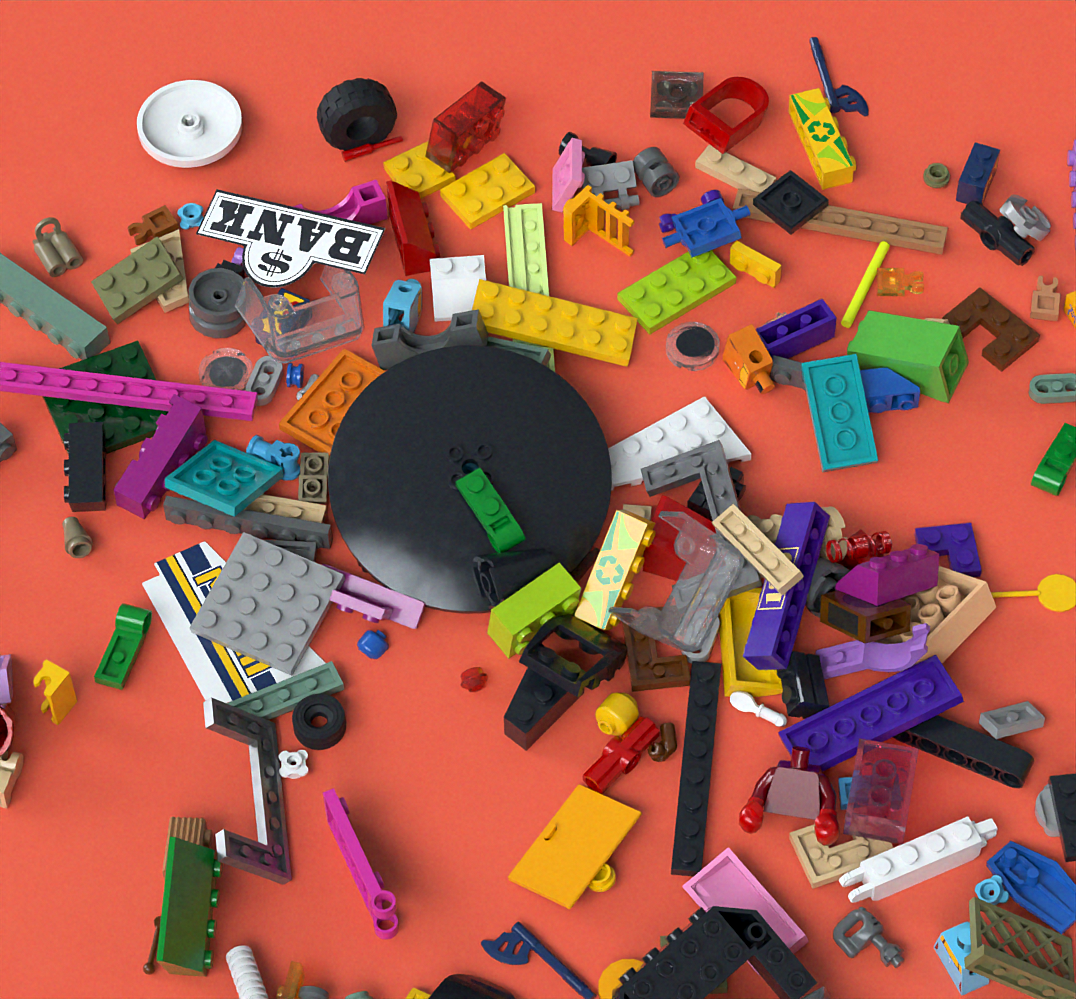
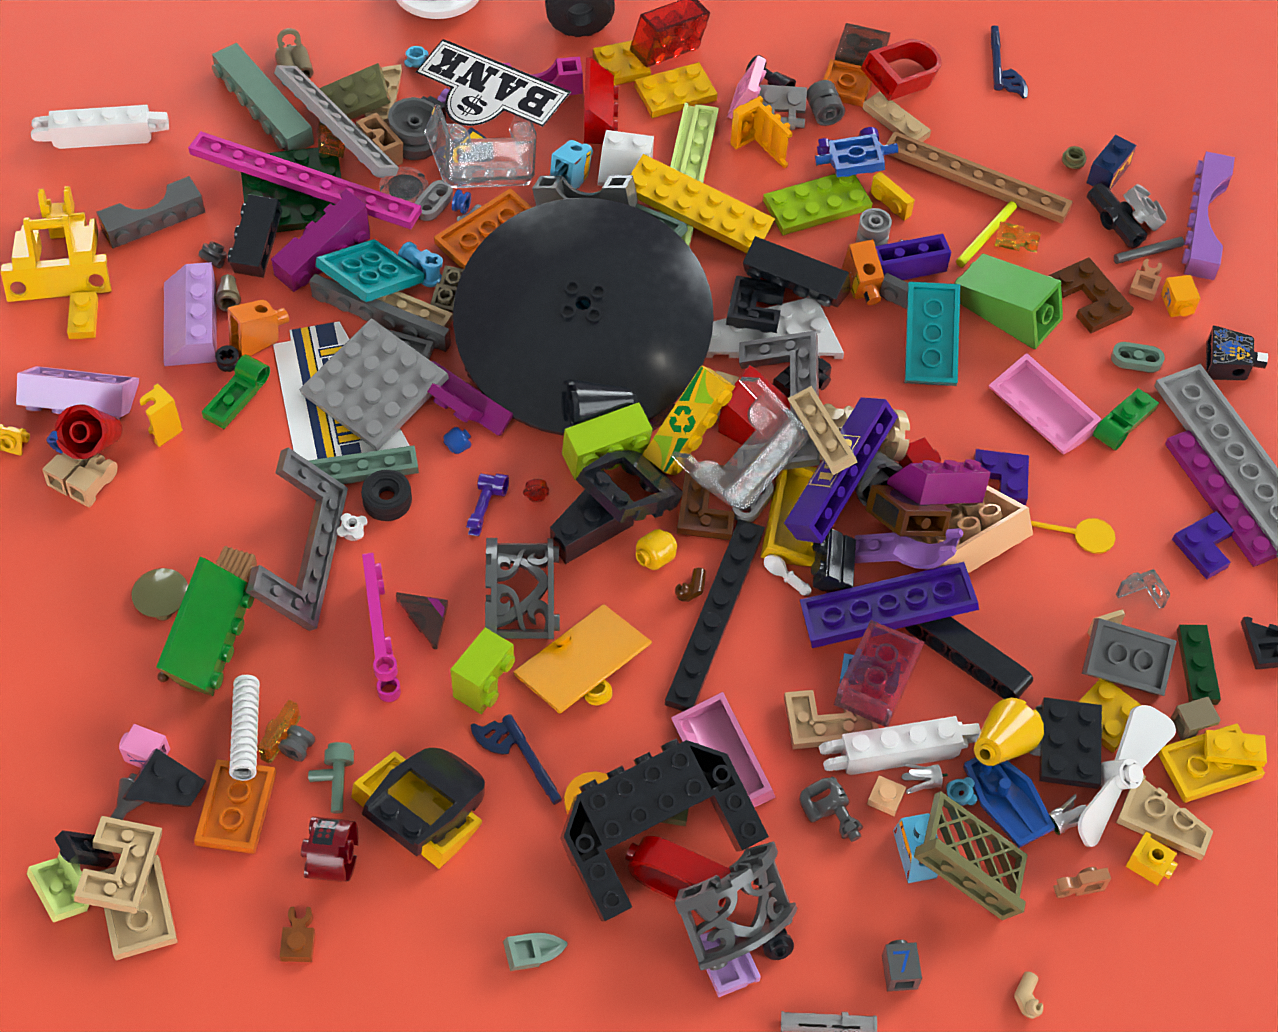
camera: 10 degrees right, 0 degrees up
(43, 573) = (190, 316): none -> lavender slope
(44, 496) = (213, 253): none -> dark grey plate
(96, 604) = (227, 352): none -> black bush
(115, 882) = (159, 593): none -> olive dish
(119, 570) = (254, 326): none -> orange torso
(130, 336) = (328, 142): none -> clear orange plate
(132, 314) = (336, 121): none -> light grey plate
(154, 224) = (384, 55): dark orange plate -> none
(183, 323) = (382, 136): none -> medium nougat brick
(367, 149) = (583, 36): red piece -> none
(399, 838) = (426, 614): none -> clear smoke tile
(424, 685) = (490, 486): none -> dark purple brick
(477, 821) = (531, 558): none -> dark grey fence
(477, 884) = (478, 670): none -> lime brick
(490, 510) = (589, 343): green plate -> none
(621, 755) = (649, 586): red piece -> none
(631, 419) = (743, 309): none -> black plate
(672, 138) = (849, 82): none -> orange tile
(679, 377) = (796, 272): none -> black slope
(692, 346) = (819, 246): tile -> none
(746, 307) = (874, 225): none -> light grey wheel
(790, 202) = (937, 151): black tile -> none
(795, 791) = (799, 655): torso -> none
(821, 138) = (979, 106): yellow brick -> none
(859, 546) = (917, 450): red piece -> none
(888, 391) = (982, 326): blue slope -> none
(918, 913) = (886, 795): none -> light nougat plate
(957, 881) = (931, 775): none -> flat silver piece
(974, 462) = (1046, 404): none -> bright pink slope
(1011, 720) = (1021, 638): light grey plate -> none
(1024, 820) = (1008, 732): none -> yellow cone
(1039, 264) = (1148, 250): none -> dark grey bar

